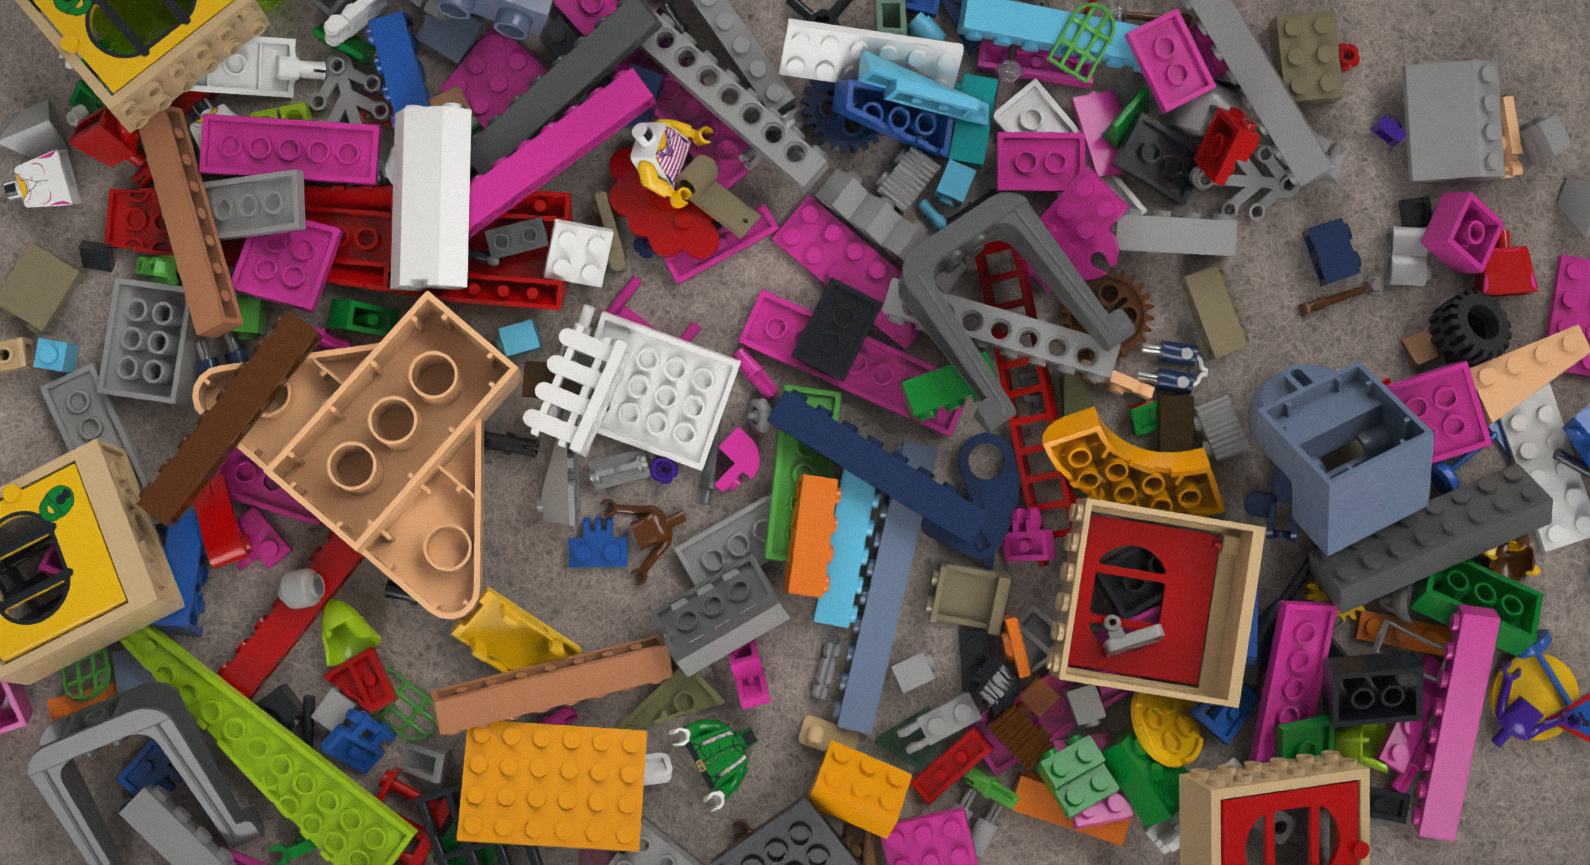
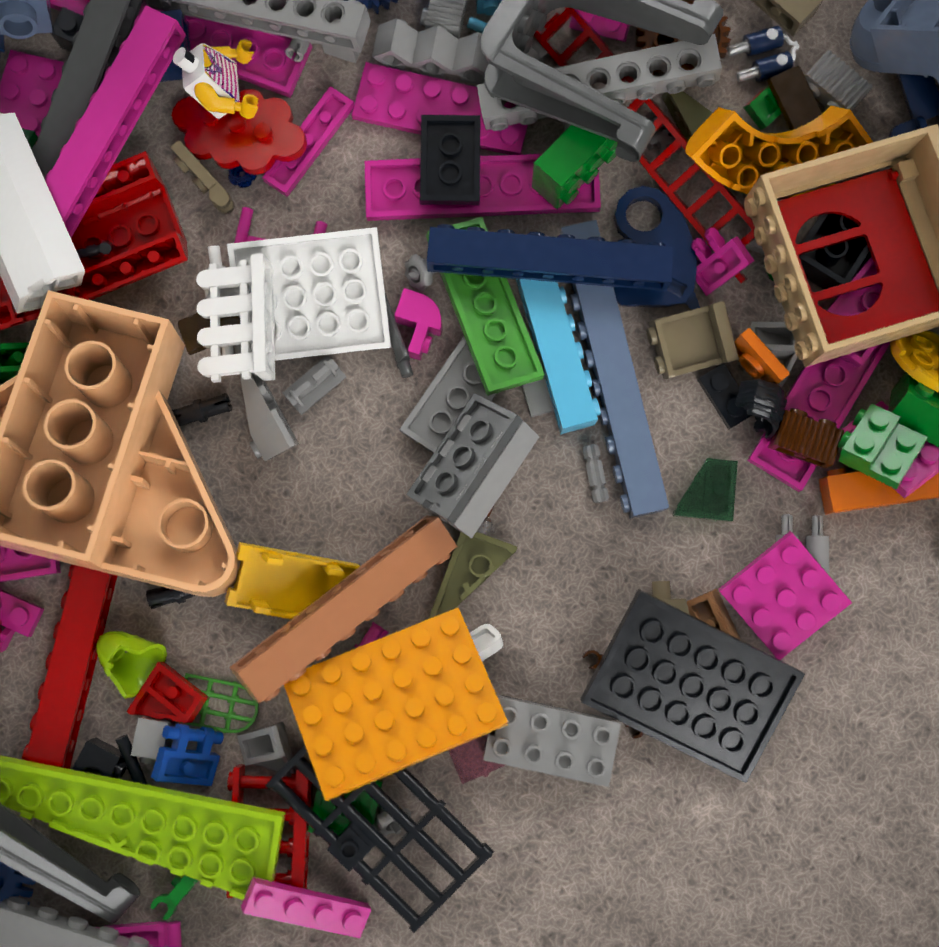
camera: 20 degrees left, 5 degrees down
(301, 588) = (62, 635): light grey head -> none
(517, 238) = (115, 214): dark grey hinge -> none
(519, 339) = (166, 305): medium azure brick -> none
(578, 253) = (179, 202): white plate -> none
(598, 546) = (329, 465): blue hinge -> none
(649, 530) = (369, 426): reddish brown piece -> none
(663, 477) = (355, 357): dark purple plate -> none
(715, 199) = (260, 82): dark tan door -> none
(717, 755) = (536, 599): green torso -> none
(749, 676) = (527, 509): dark pink brick -> none
(755, 374) = (398, 240): dark pink axle -> none
(811, 535) = (521, 350): orange brick -> none
(819, 732) = (629, 533): tan piece -> none
(859, 789) = (685, 563): light orange brick -> none
(913, 671) = (676, 432): light grey brick -> none
(942, 721) = (728, 463): light grey hinge -> none
(952, 765) = (757, 500): red tile -> none
(991, 788) = (804, 502): bright green axle -> none
(1039, 696) = (804, 396): tile -> none
(1084, 704) = (850, 381): light grey brick -> none
(1121, 643) = (857, 302): light grey piece -> none
(1122, 383) = (726, 89): light nougat plate -> none

